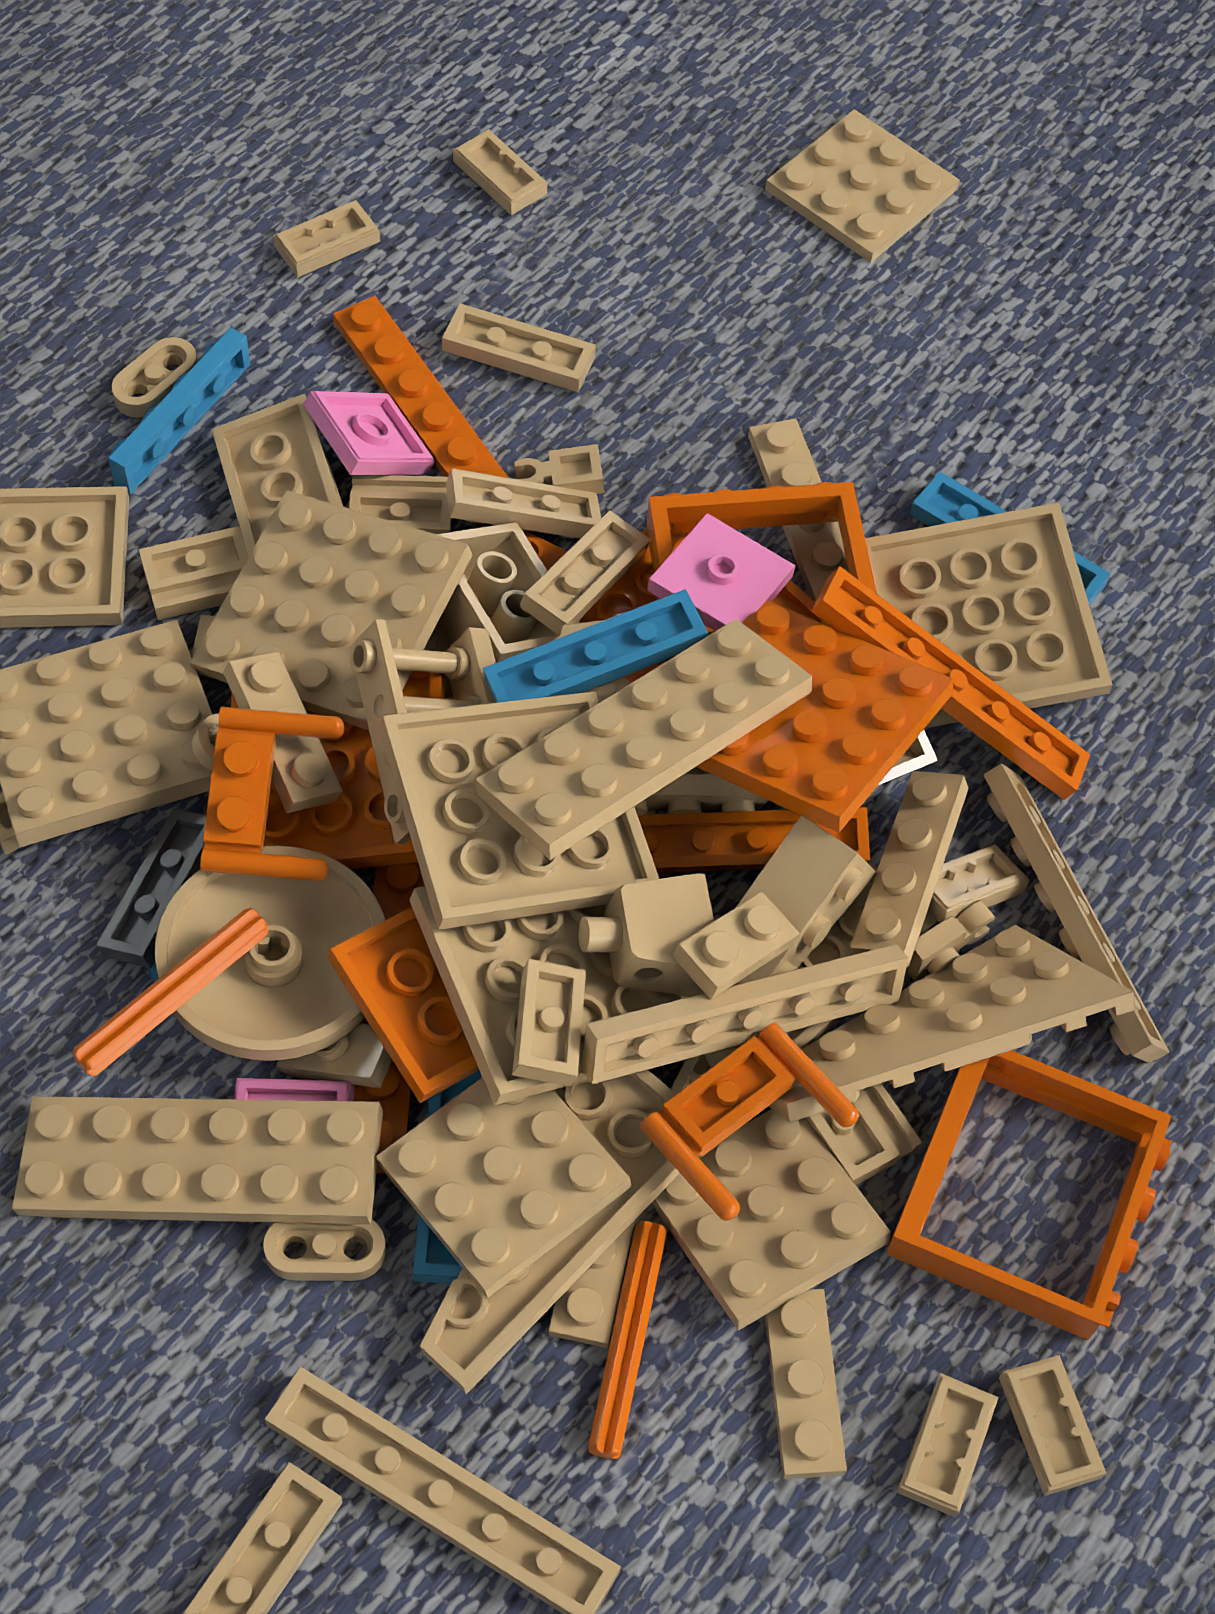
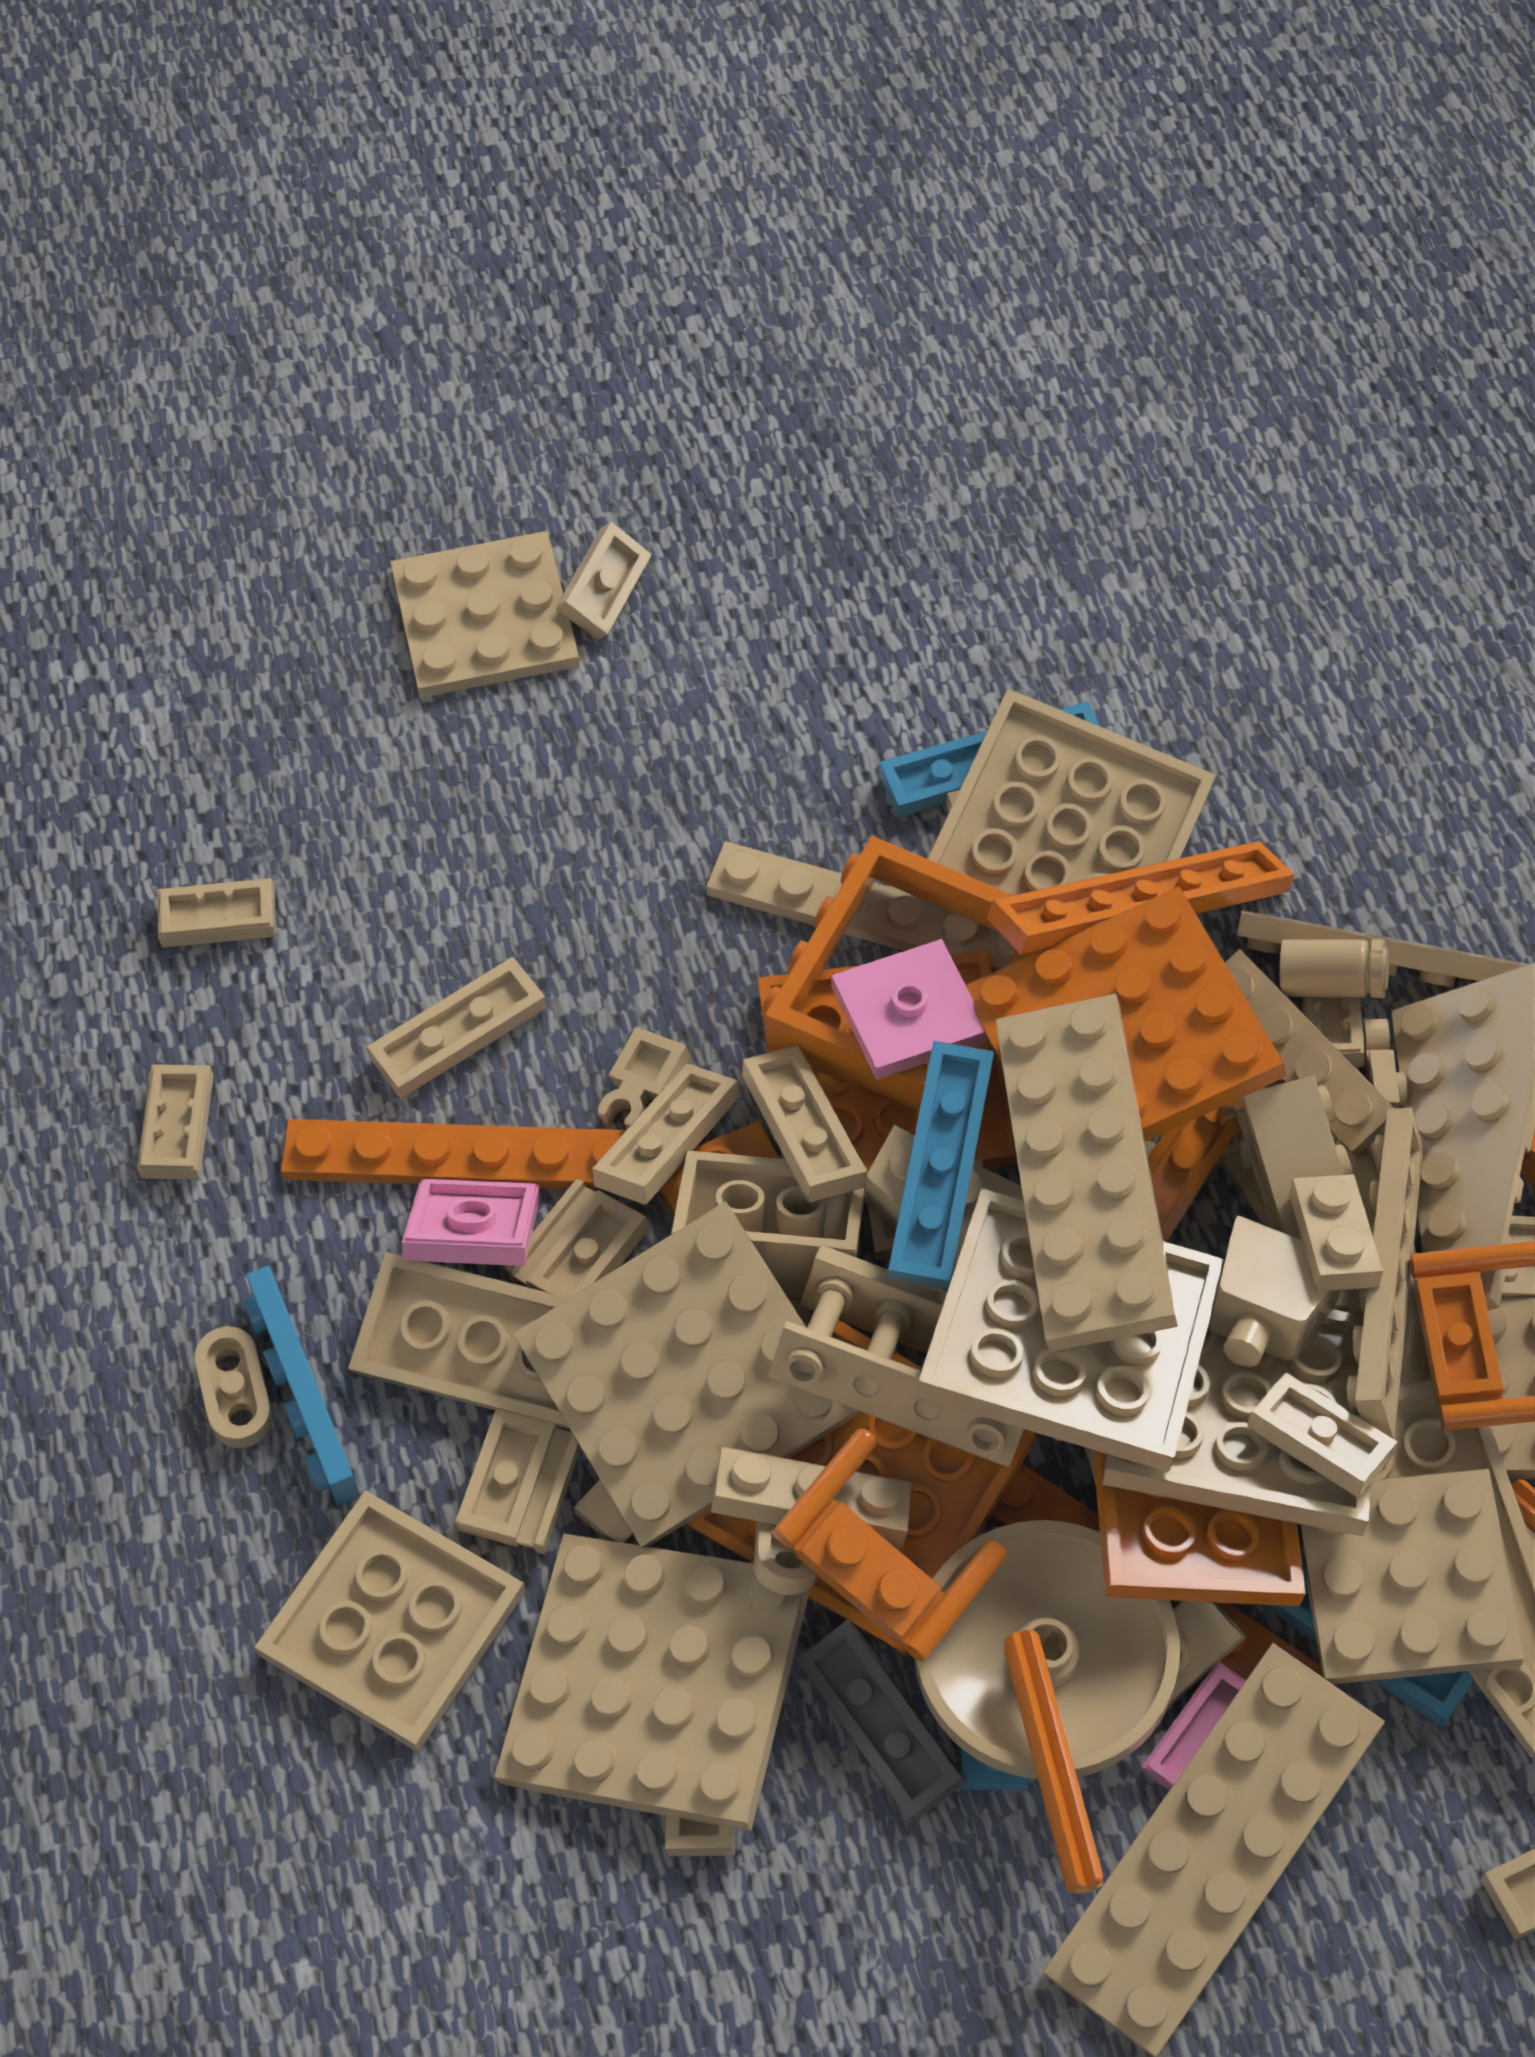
camera: 50 degrees left, 0 degrees up
(325, 1251) = (1373, 1790): tan plate -> none
(946, 231) = (603, 581): none -> tan plate
(1004, 851) = (1334, 968): none -> tan piece

